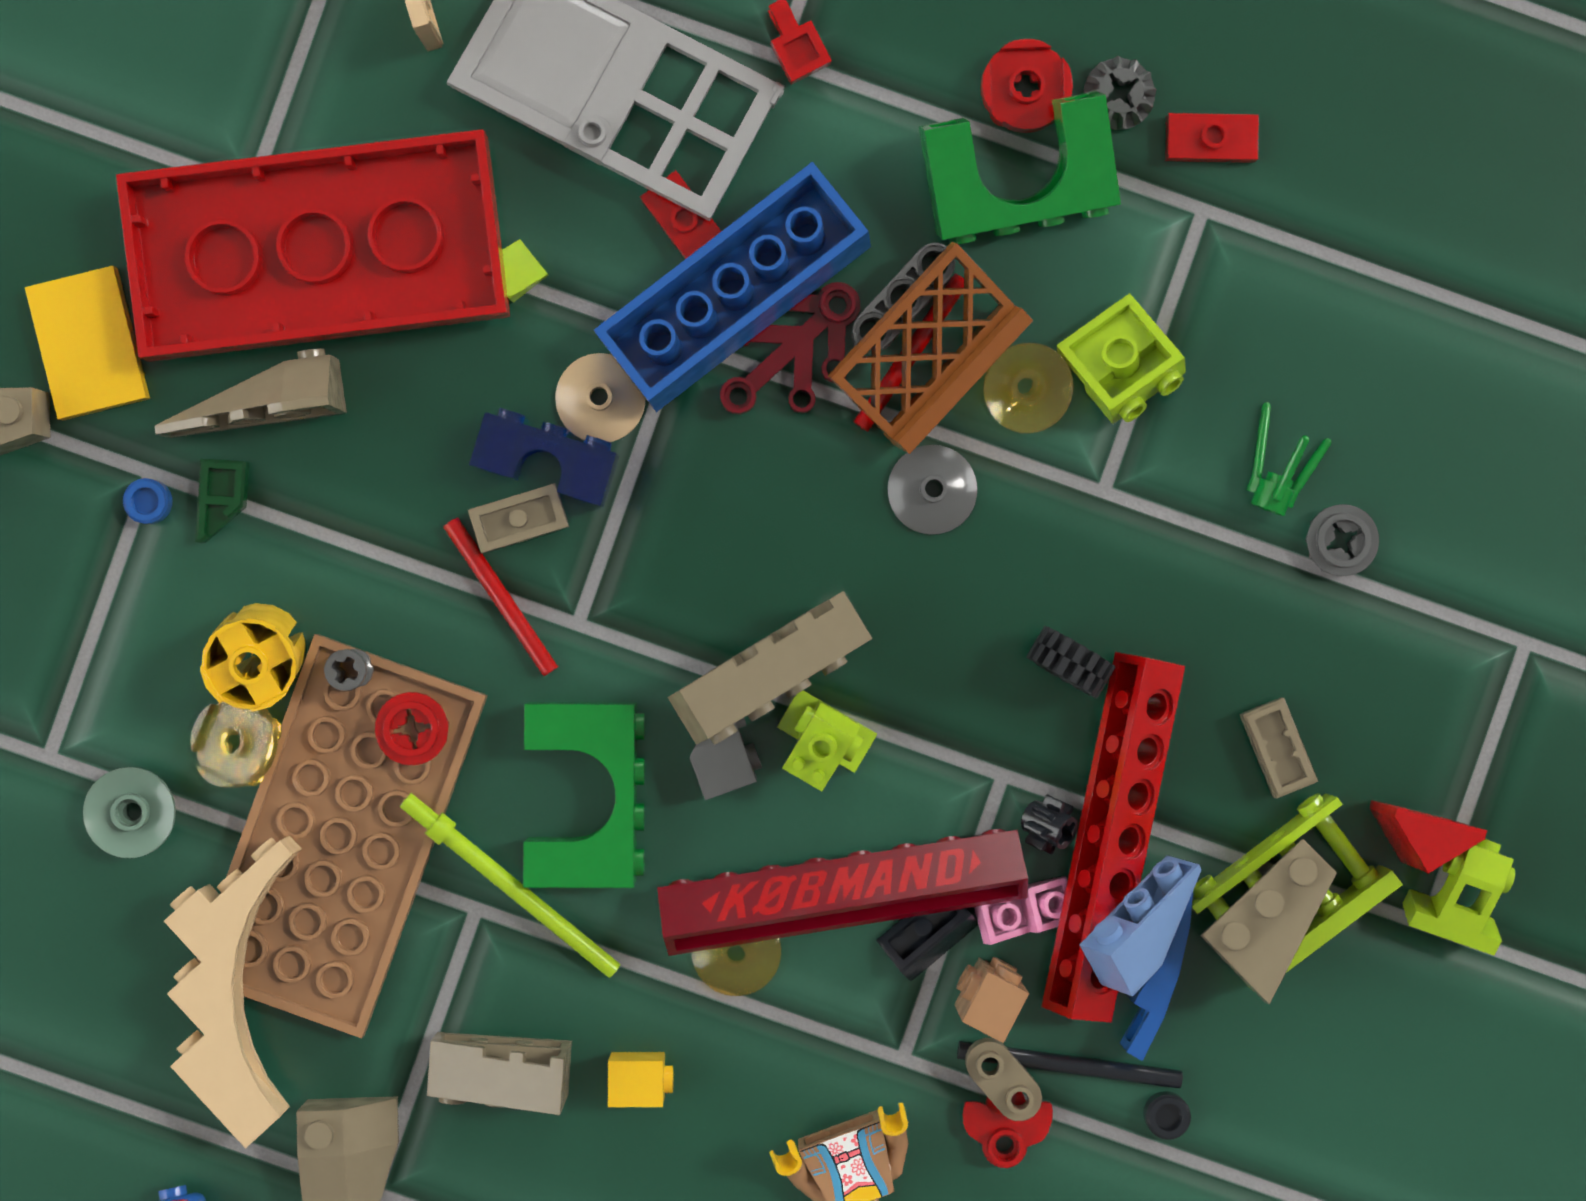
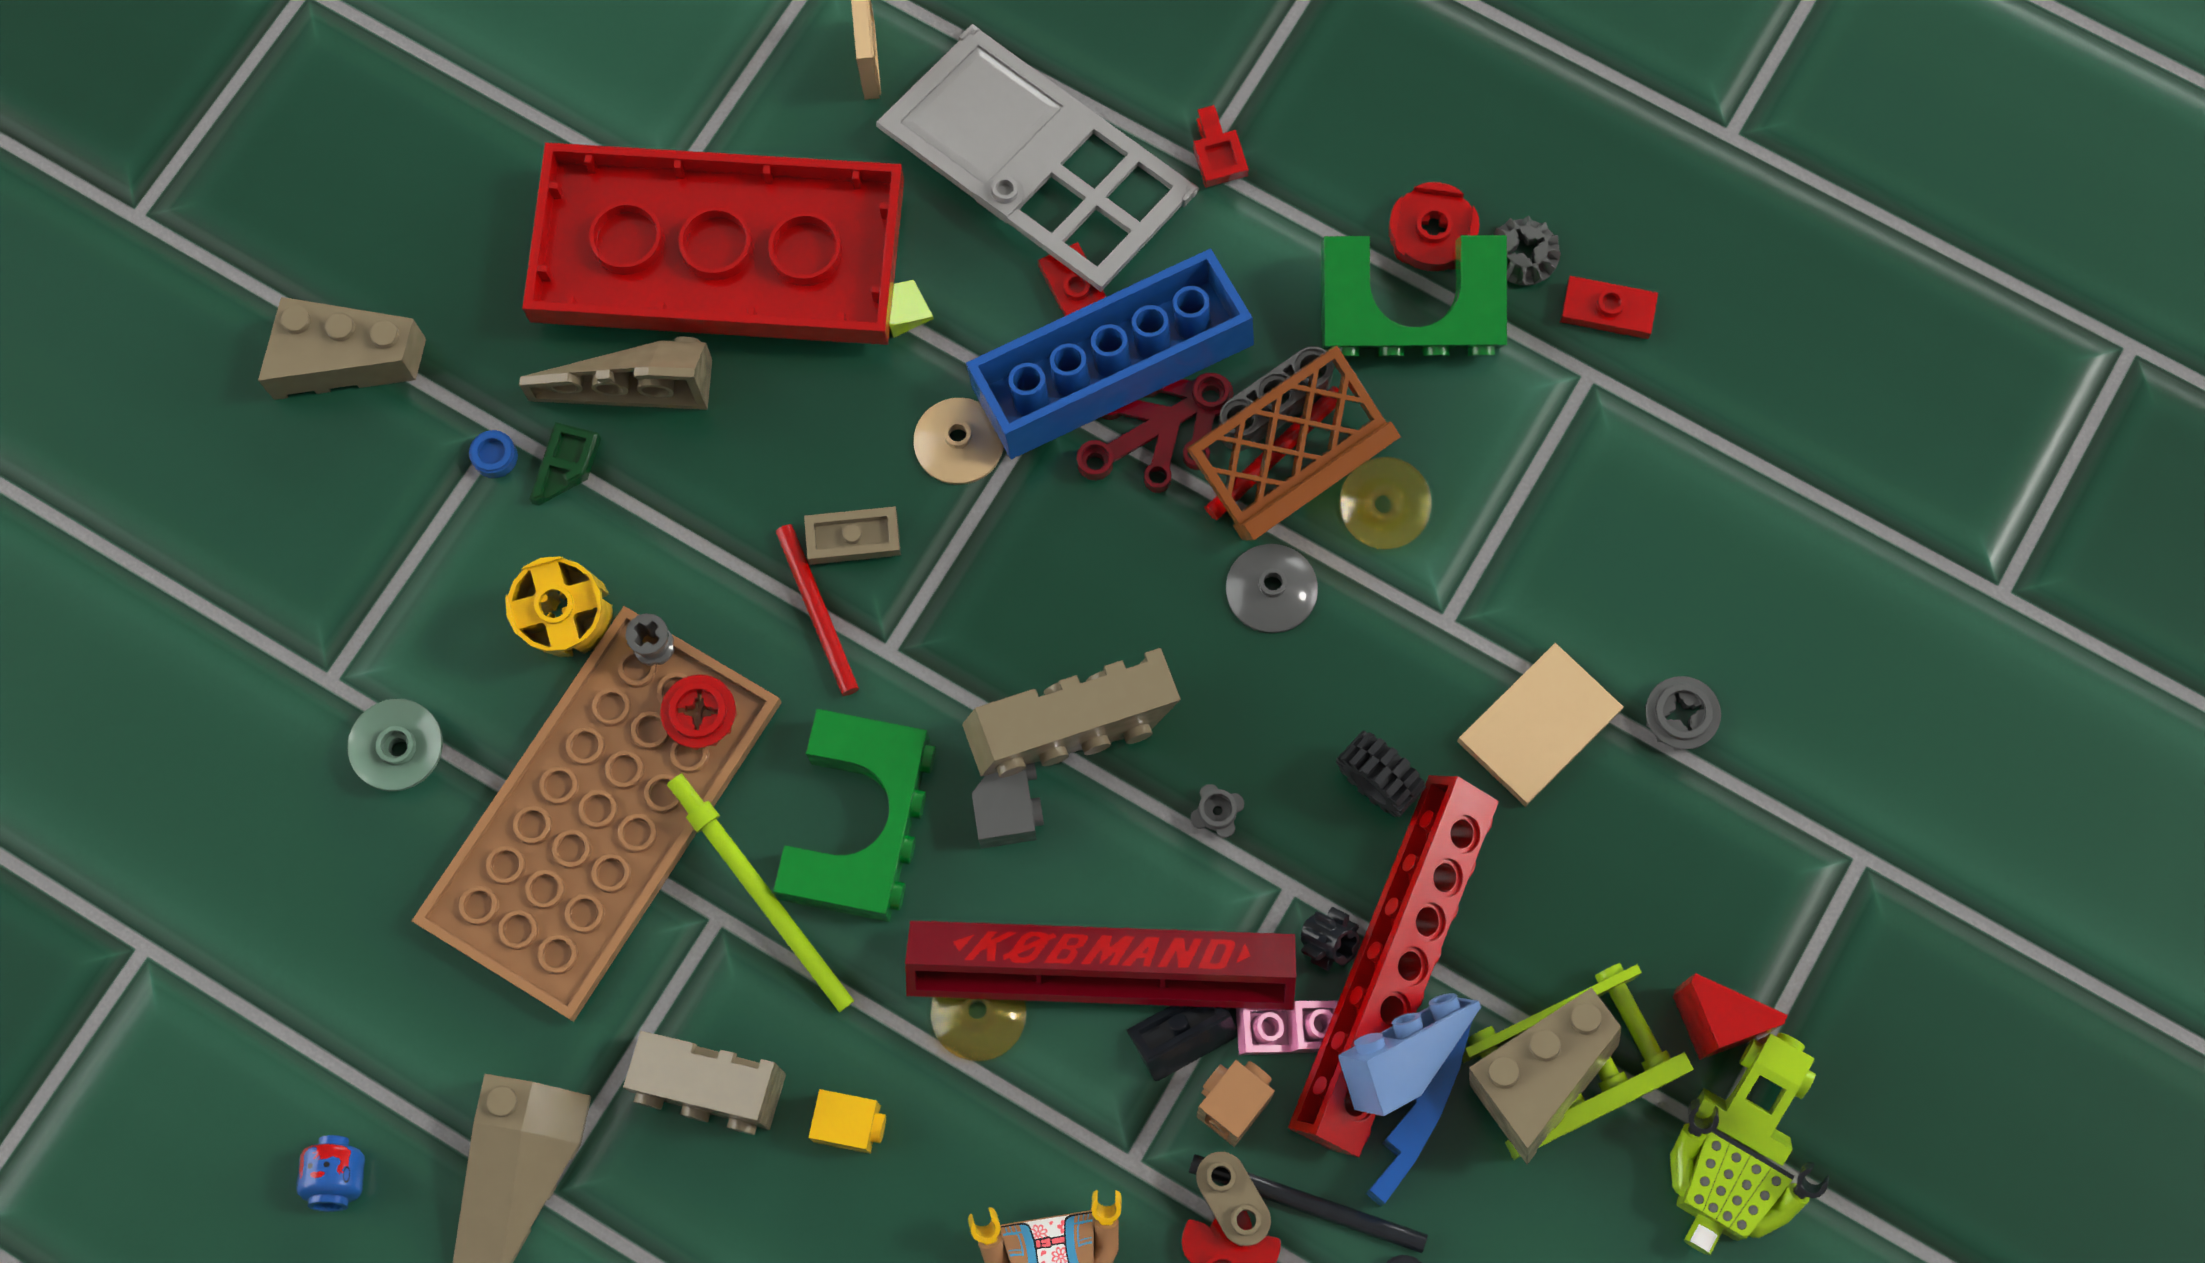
camera: 15 degrees right, 15 degrees down
(87, 343) = (475, 298): yellow tile -> none
(223, 1061) = (454, 868): tan arch -> none
(256, 751) = (533, 710): clear yellow plate -> none
(507, 443) = (860, 460): clear blue arch -> none
(824, 740) = (1115, 800): lime tile -> none
(930, 729) = (1214, 797): none -> dark grey plate
(1123, 360) = (1486, 495): lime plate -> none
(1210, 576) = (1540, 724): none -> tan tile
(1278, 491) = (1620, 652): green plant -> none
(1278, 747) = (1584, 909): dark tan plate -> none
(1452, 979) = (1731, 1185): none -> lime torso

